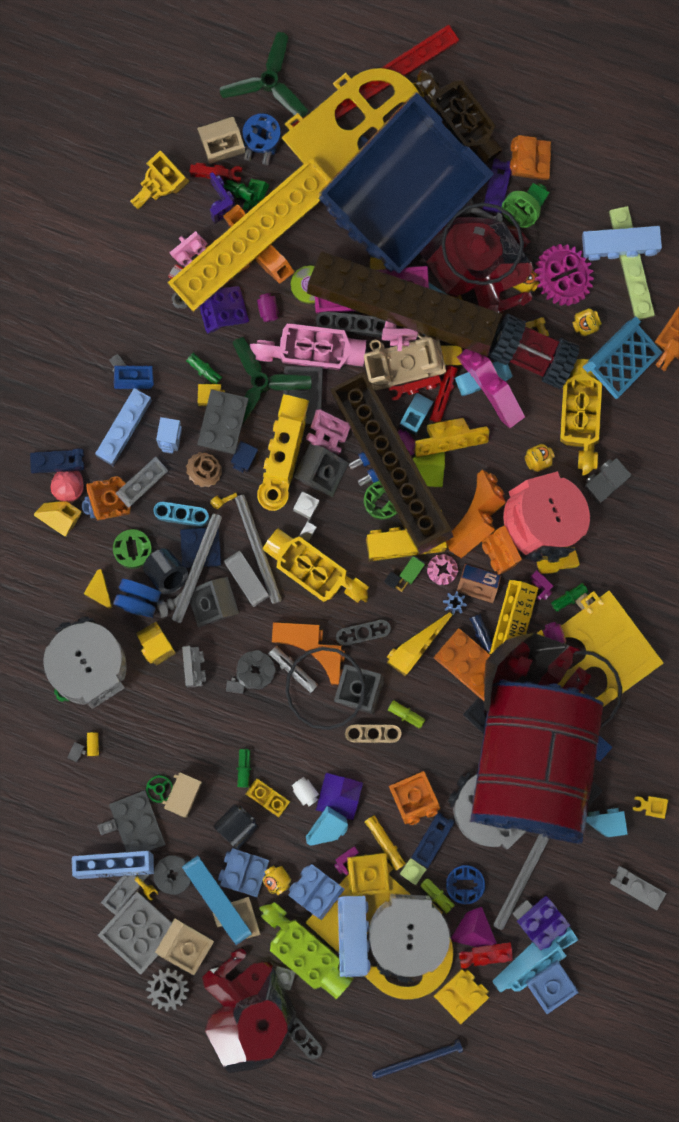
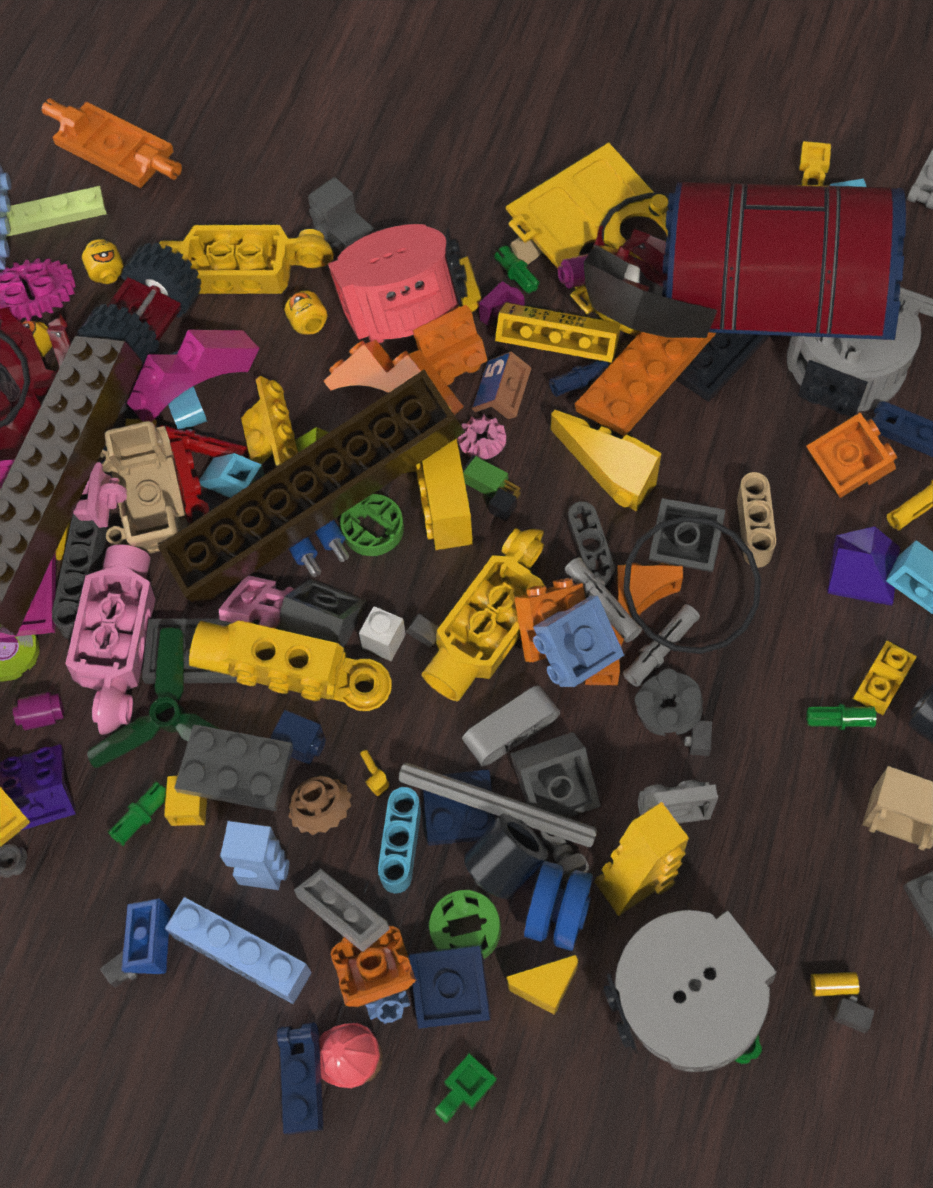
camera: 80 degrees left, 20 degrees down
(49, 547) = (467, 1085): none -> green plate
(59, 516) = (406, 1067): yellow slope -> none
(99, 539) = (450, 986): none -> dark blue plate
(154, 787) = (897, 867): green piece -> none
(257, 548) = (454, 712): light grey axle -> none
(284, 616) = (577, 642): none -> medium blue plate
(305, 603) = (541, 604): none -> orange plate
(305, 791) = (867, 616): white brick -> none
(335, 621) = (595, 587): none -> light grey pin
(406, 714) = (717, 477): lime axle -> none
(459, 600) = (535, 414): medium blue gear -> none
(615, 343) = (151, 210): dark azure fence -> none

